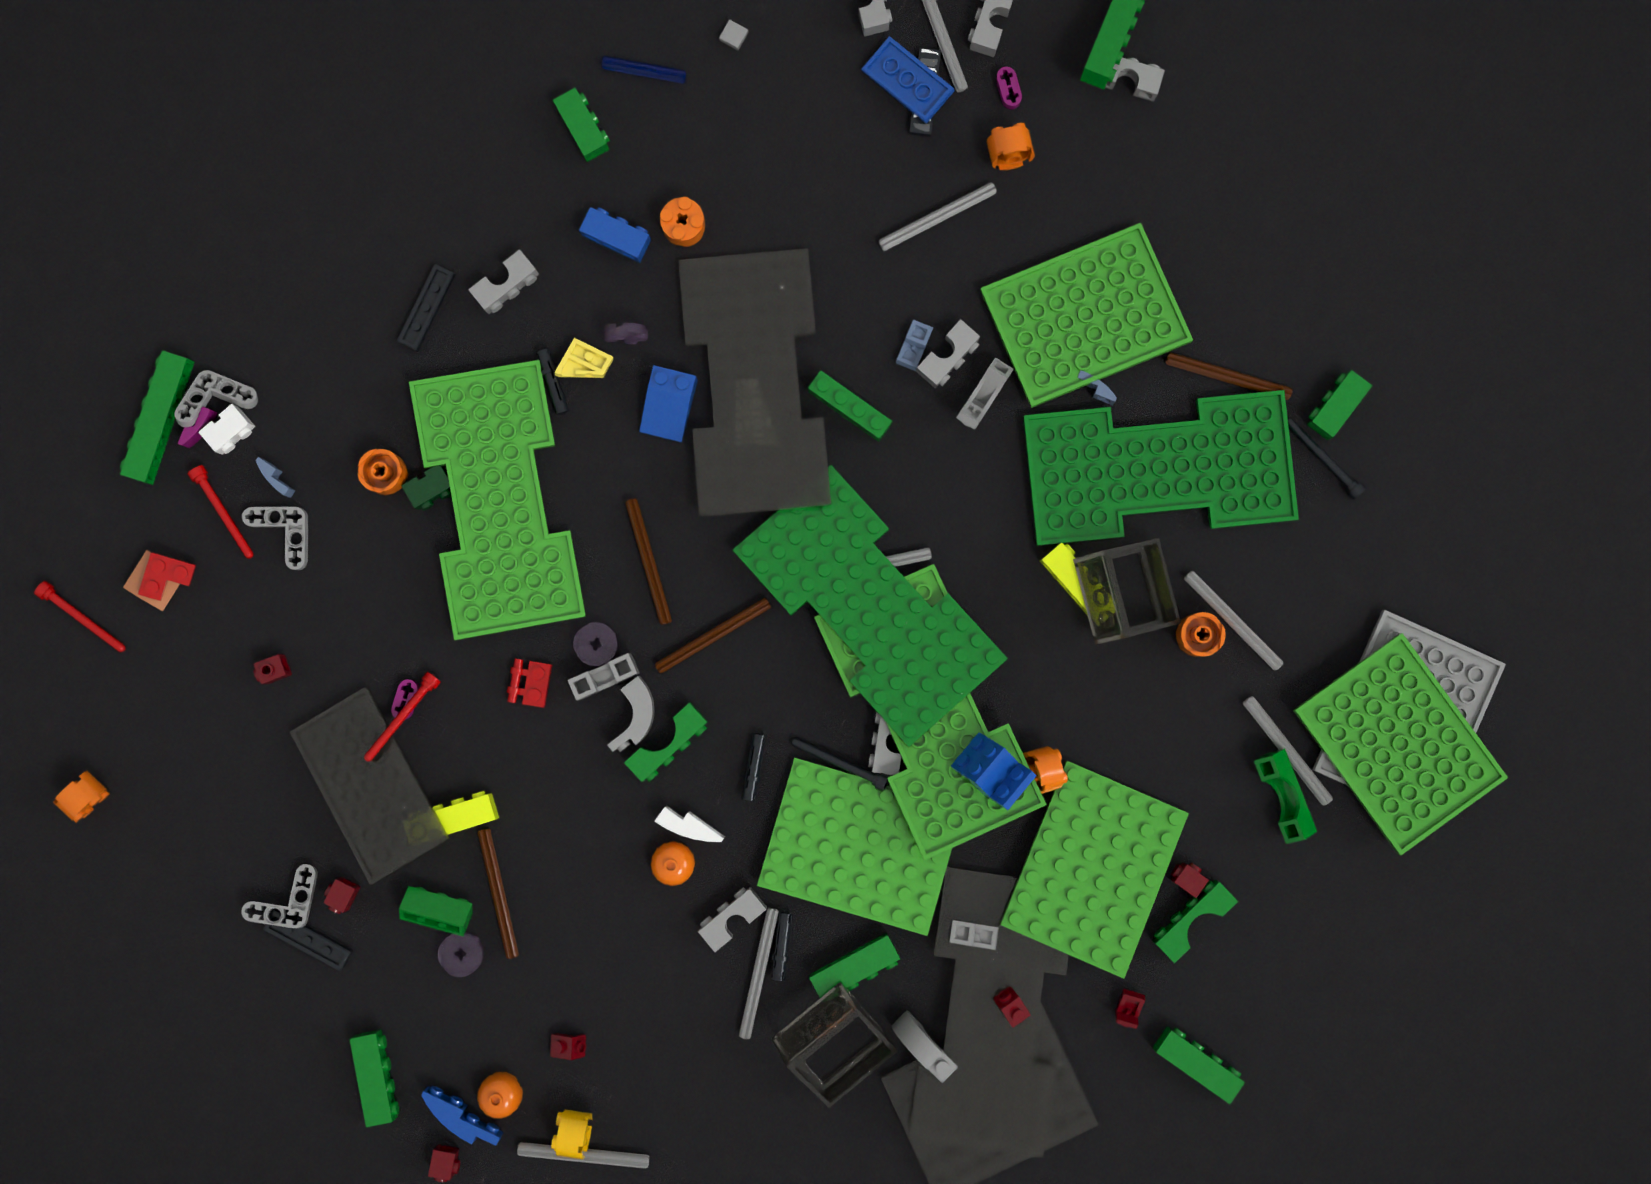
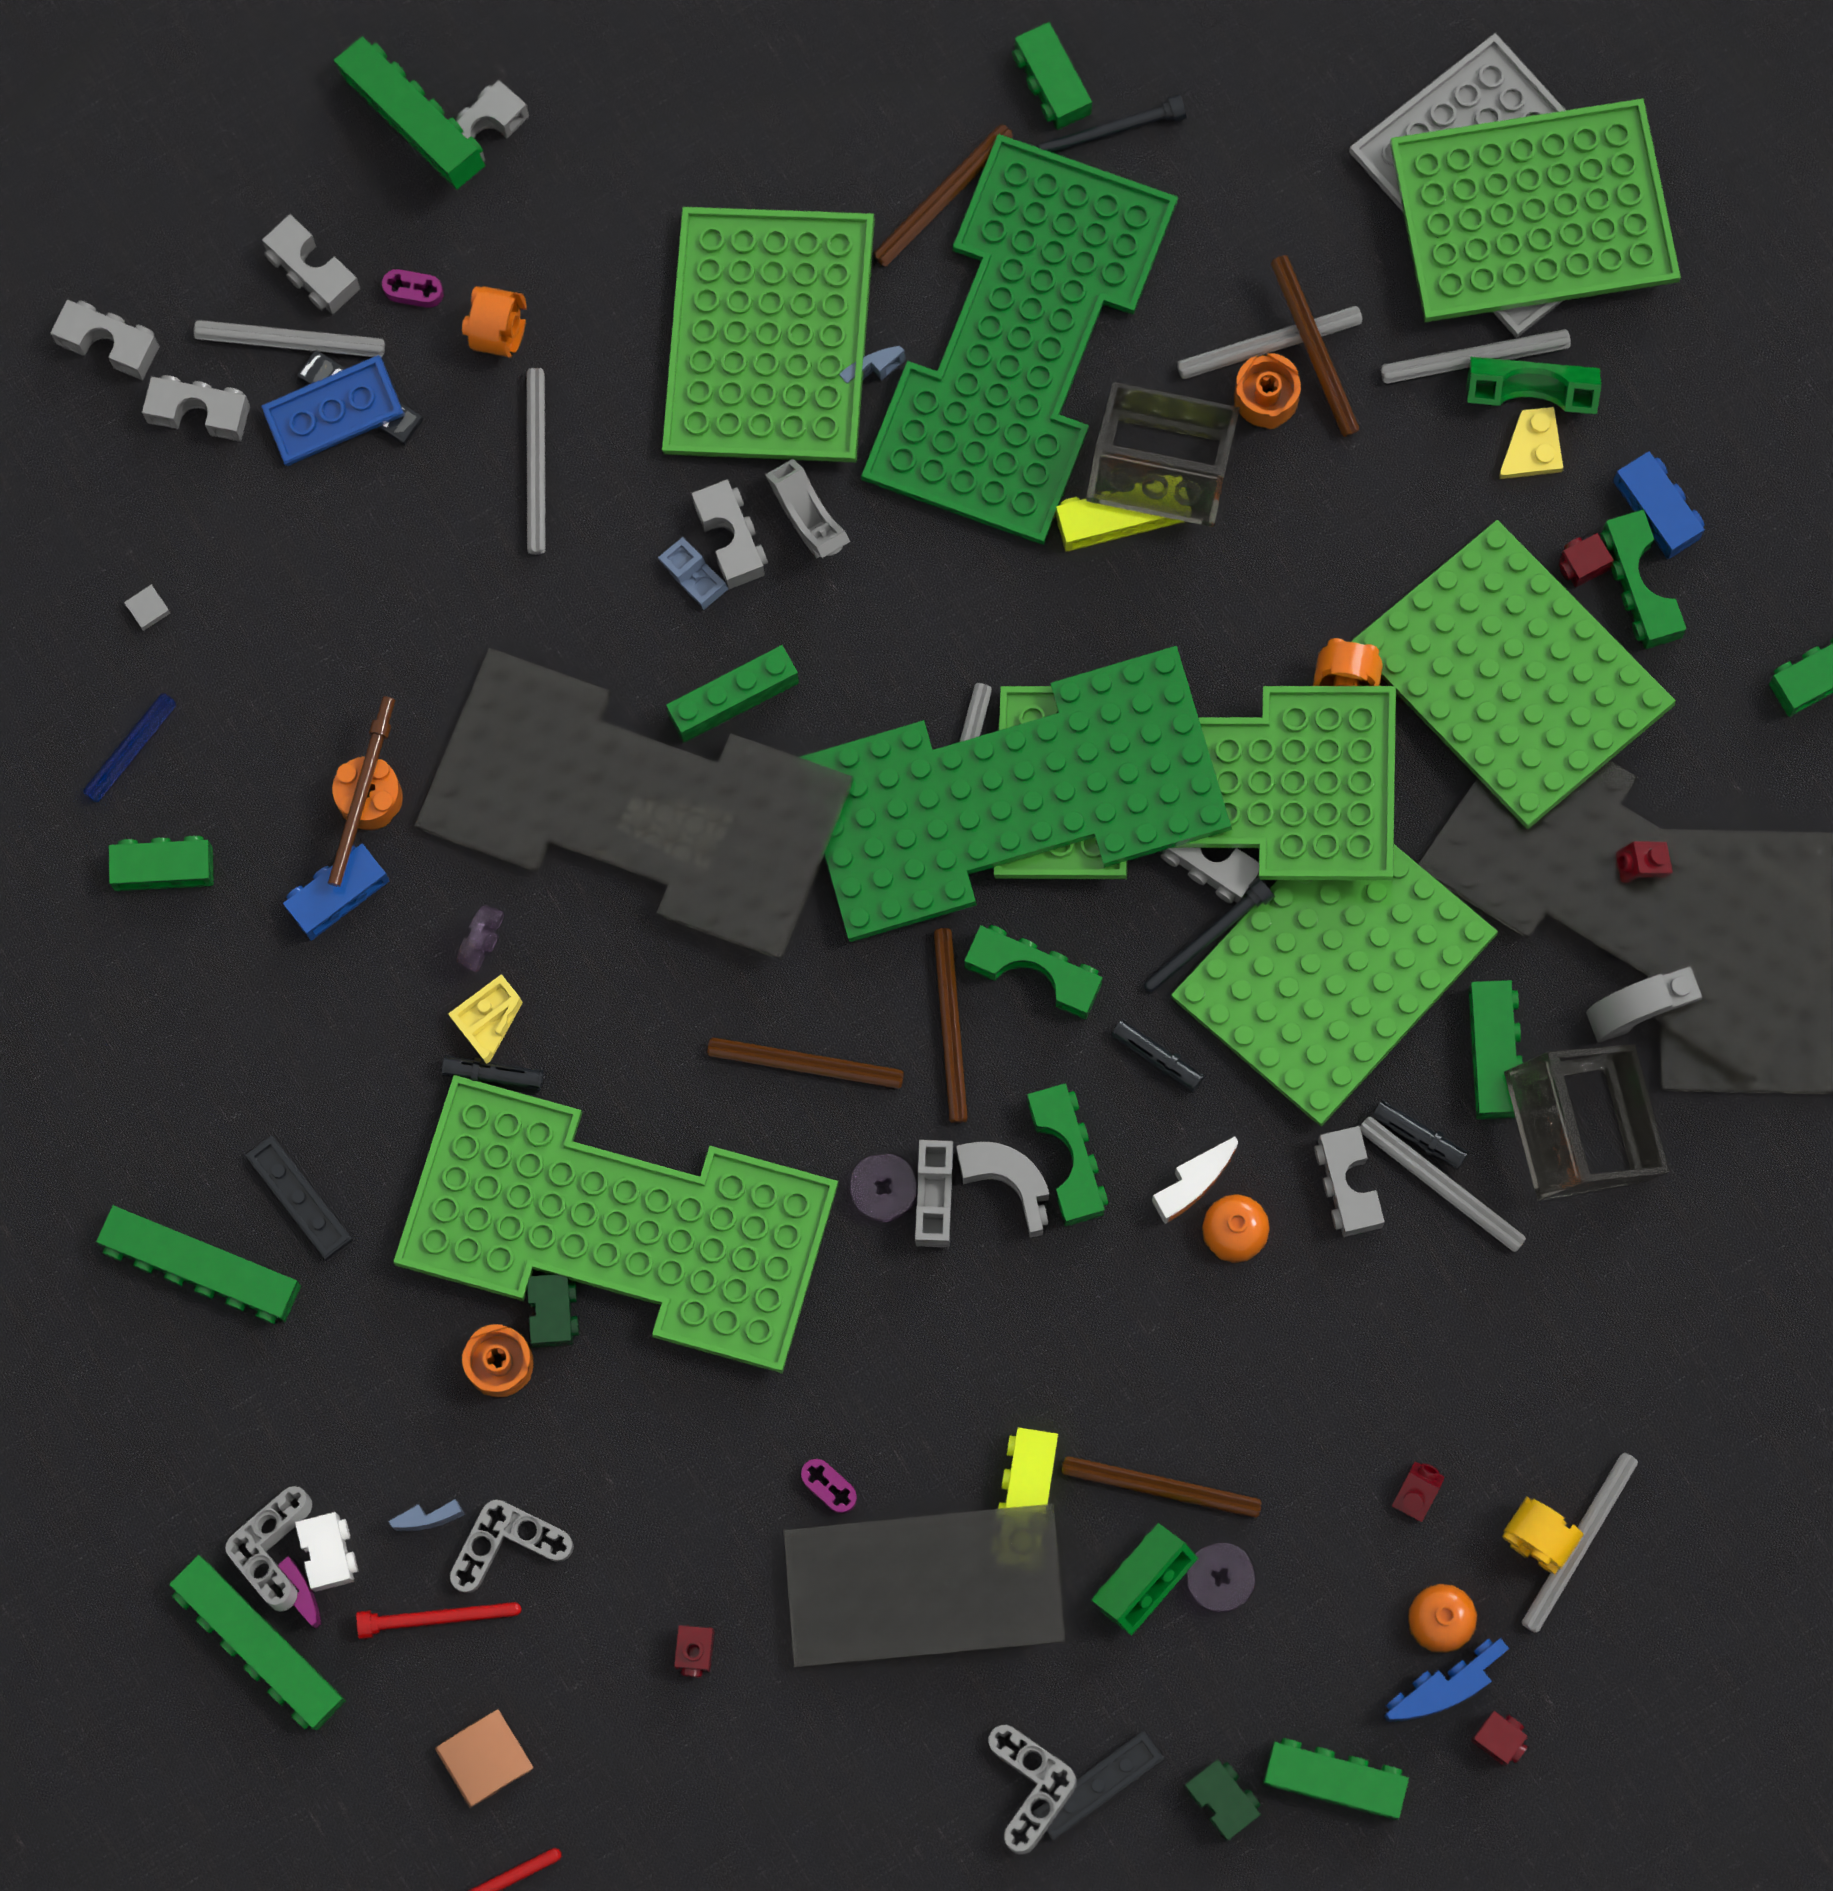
camera: 65 degrees left, 10 degrees down
(160, 570) = (476, 1735): red plate -> none
(335, 1011) = (1225, 1799): none -> dark green brick
(341, 895) = (1058, 1705): dark red brick -> none
(357, 270) = (199, 1264): none -> green brick
(429, 682) = (822, 1439): red piece -> none
(520, 274) = (329, 1099): light grey arch -> none
(536, 684) = (896, 1295): red plate -> none
(668, 403) = (603, 931): blue slope -> none
(718, 208) = (379, 731): none -> reddish brown bar
(770, 697) = (995, 954): none -> green arch
(974, 934) = (1525, 867): light grey slope -> none
(993, 771) = (1316, 727): blue bracket -> none
(1129, 1008) = (1720, 717): dark red bracket -> none
(1244, 649) = (1314, 345): none -> reddish brown axle
(1248, 813) = (1533, 446): none -> light yellow wing
(1251, 905) = (1664, 504): none -> blue brick

